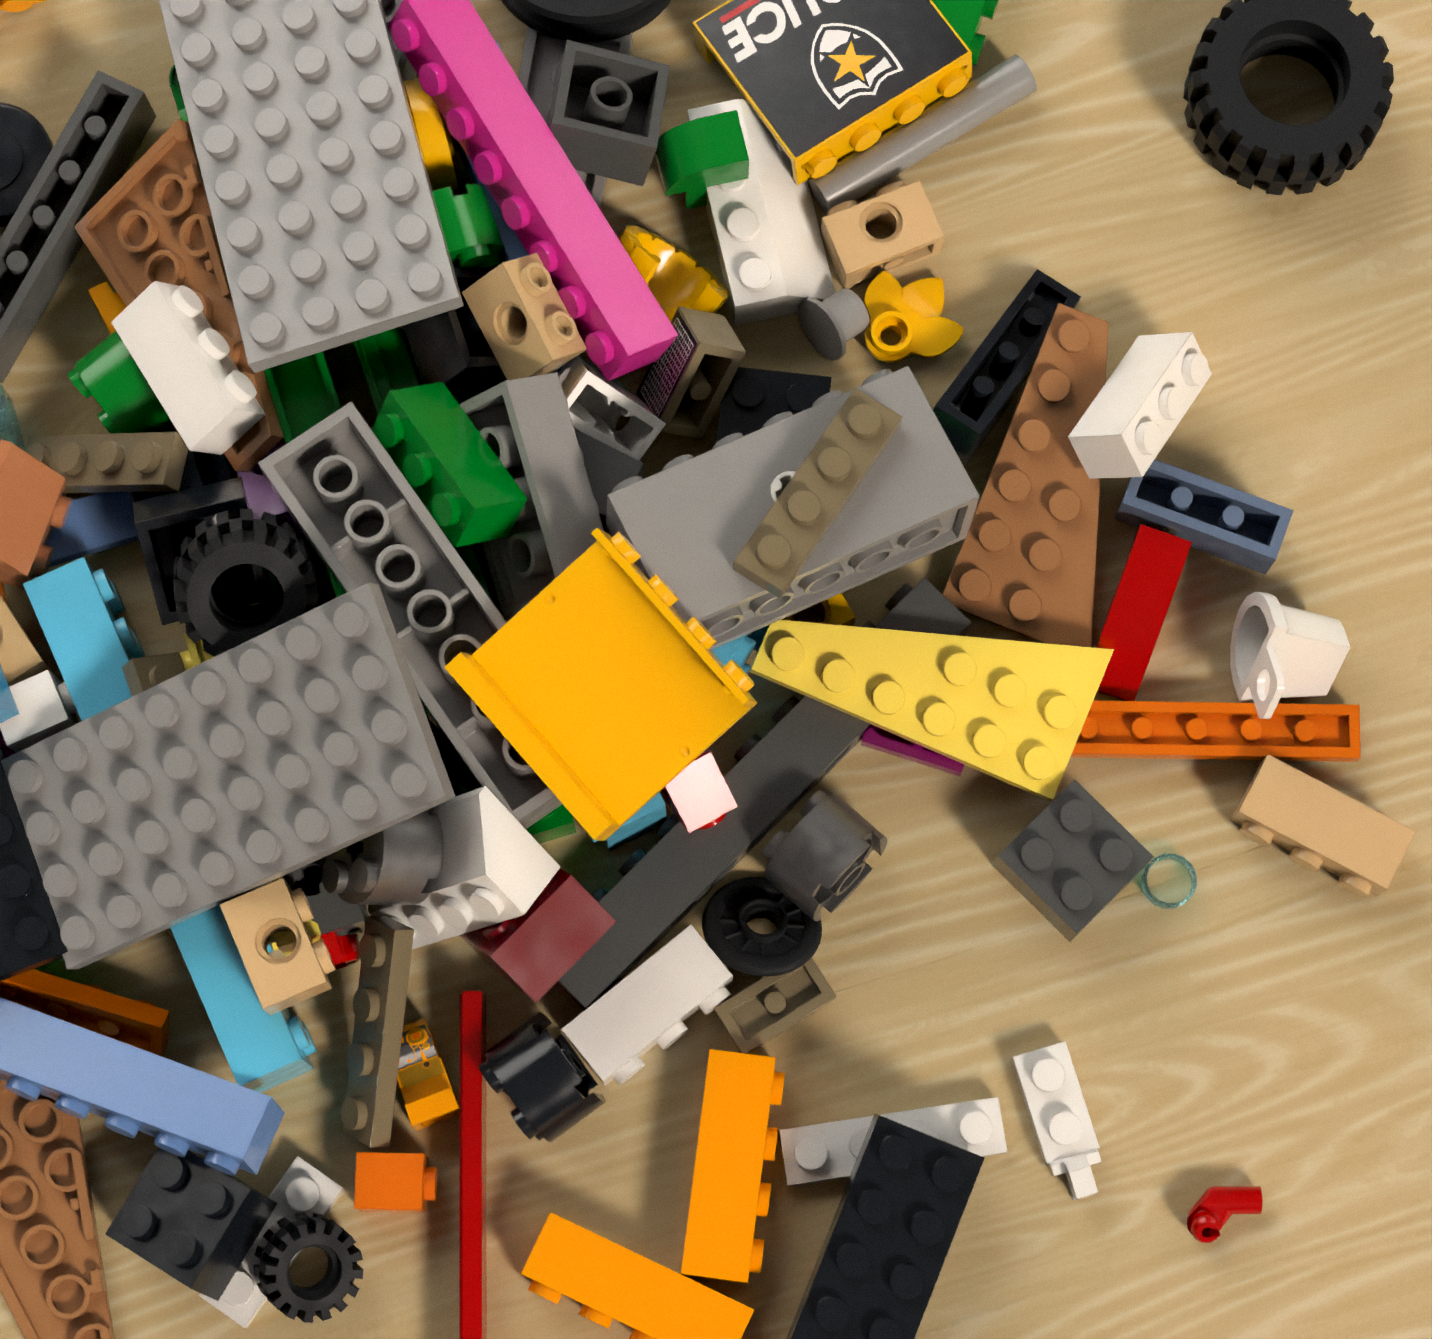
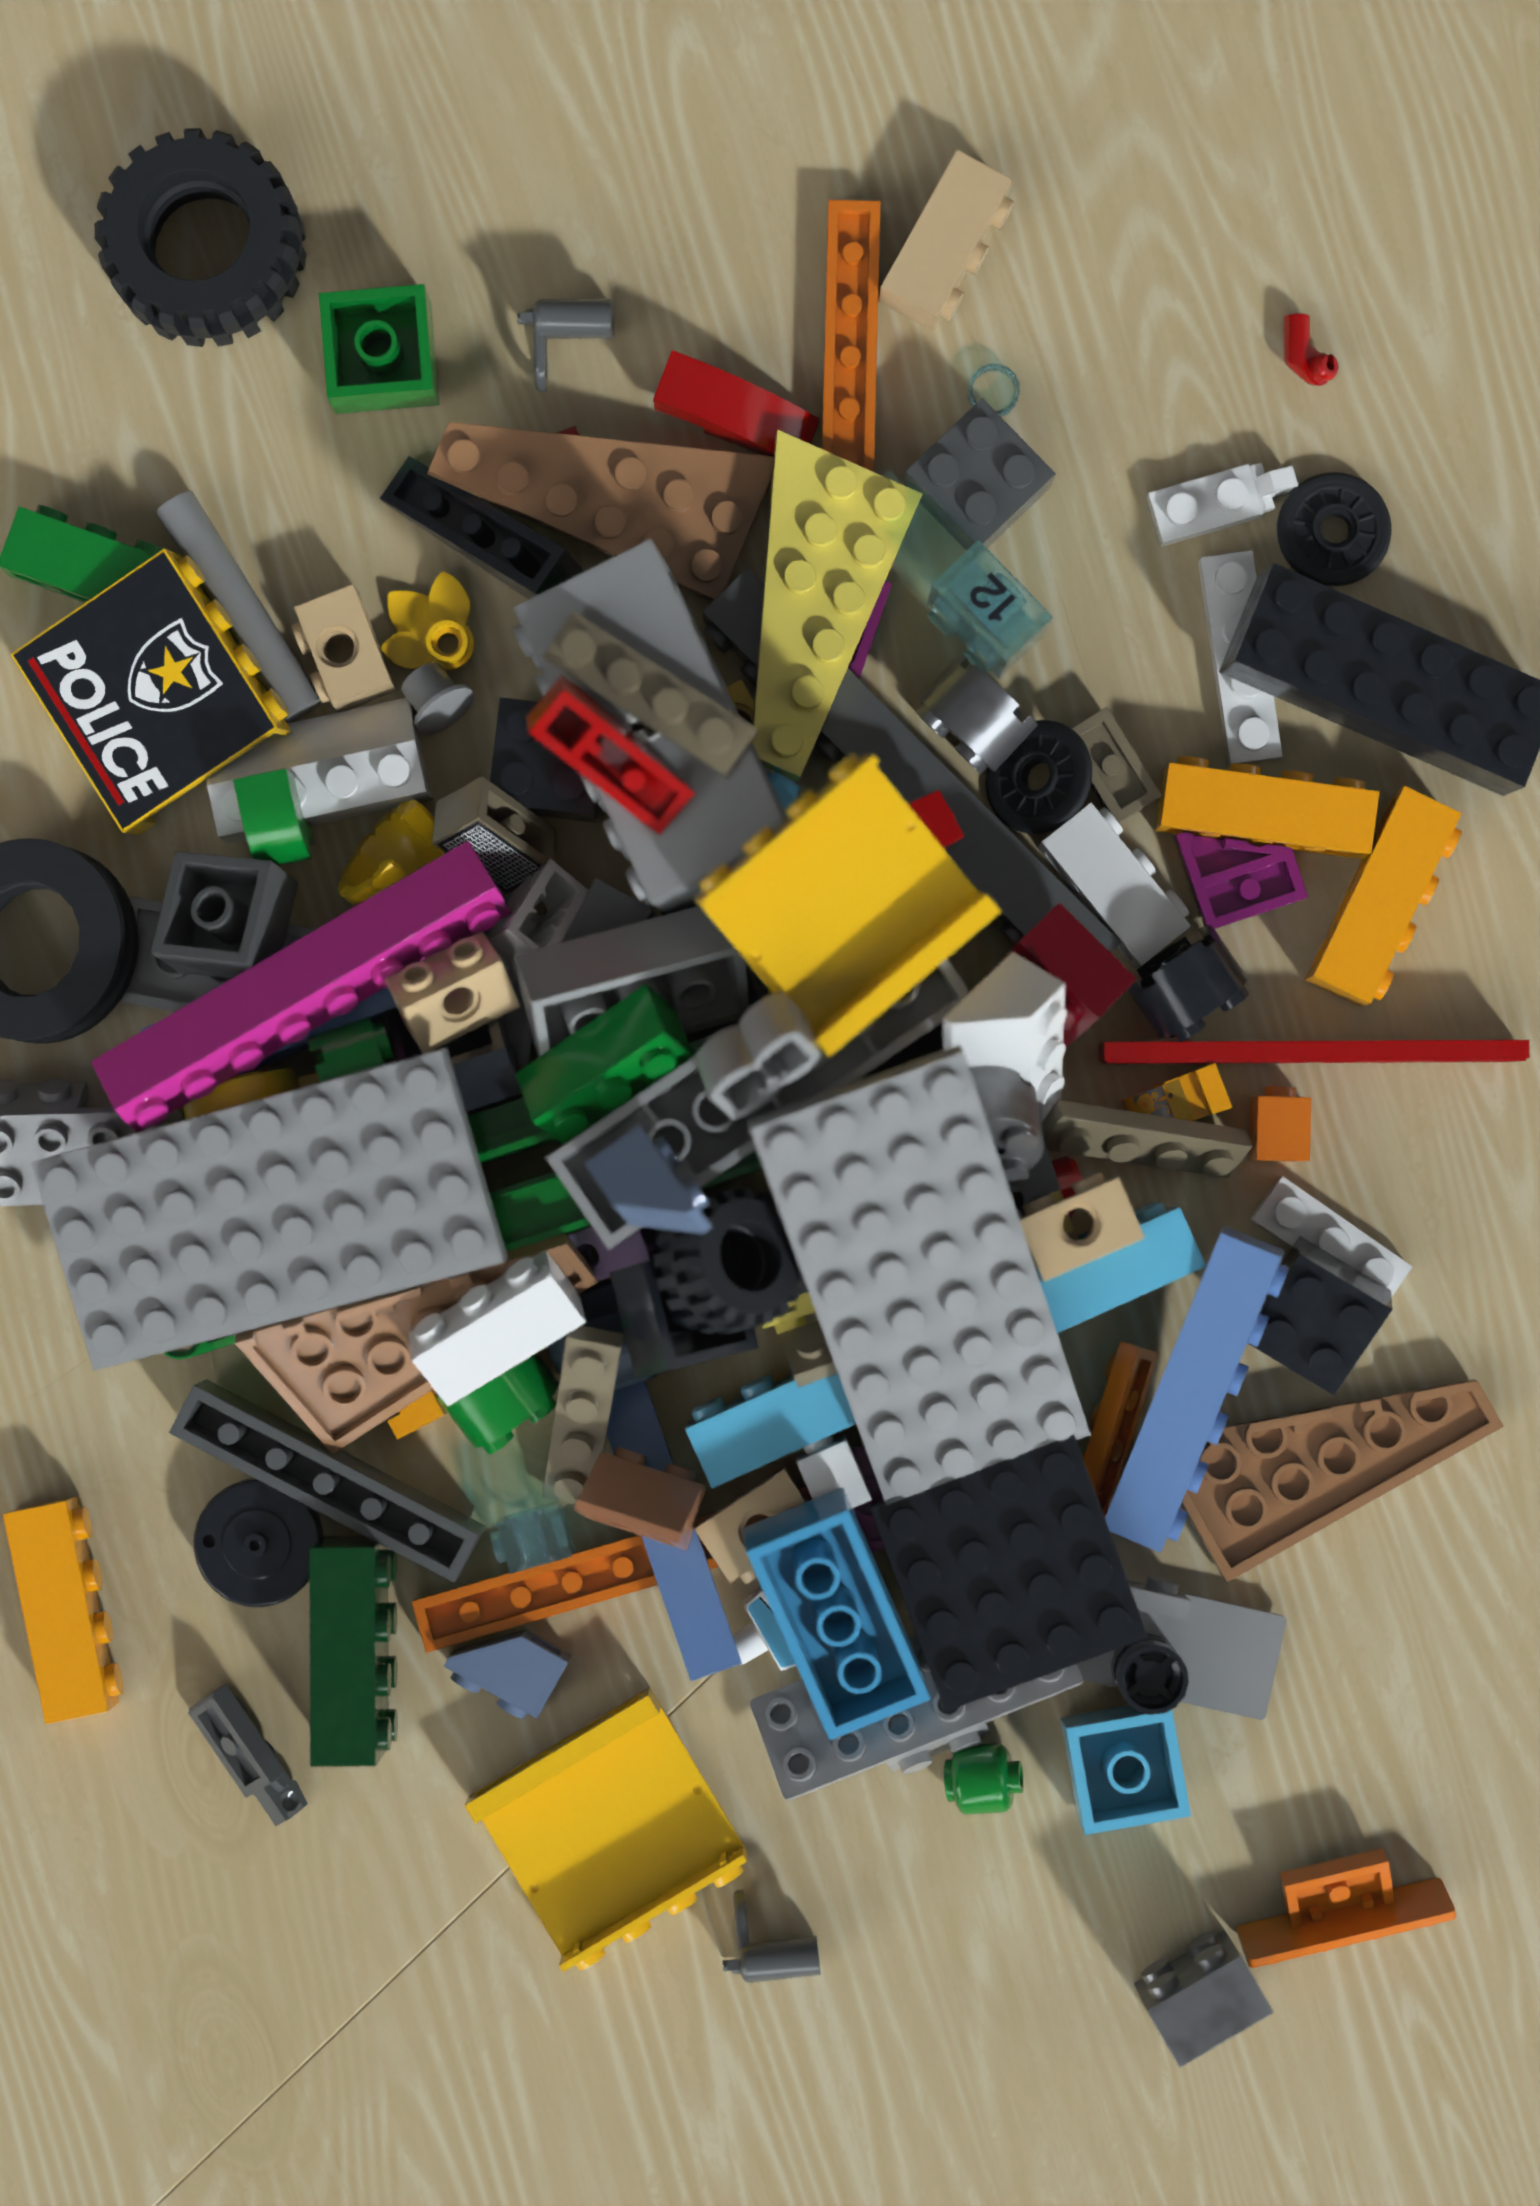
camera: 90 degrees left, 10 degrees up
(318, 487) = (644, 1187): none -> sand blue slope
(331, 1289) = (1378, 1187): black tyre -> none
(446, 596) = (757, 1055): none -> light grey brick
(658, 1138) = (1238, 878): none -> magenta wing
(754, 447) = (608, 754): none -> red slope
(931, 866) = (987, 611): none -> clear light blue brick
(1068, 1232) = (1354, 503): none -> black wheel
(1140, 405) = (534, 393): white brick -> none
(1184, 260) = (379, 349): none -> green brick
(1207, 514) = (639, 339): sand blue brick -> none
(1221, 440) = (565, 321): none -> dark grey piece
(1283, 652) = (779, 270): white container -> none

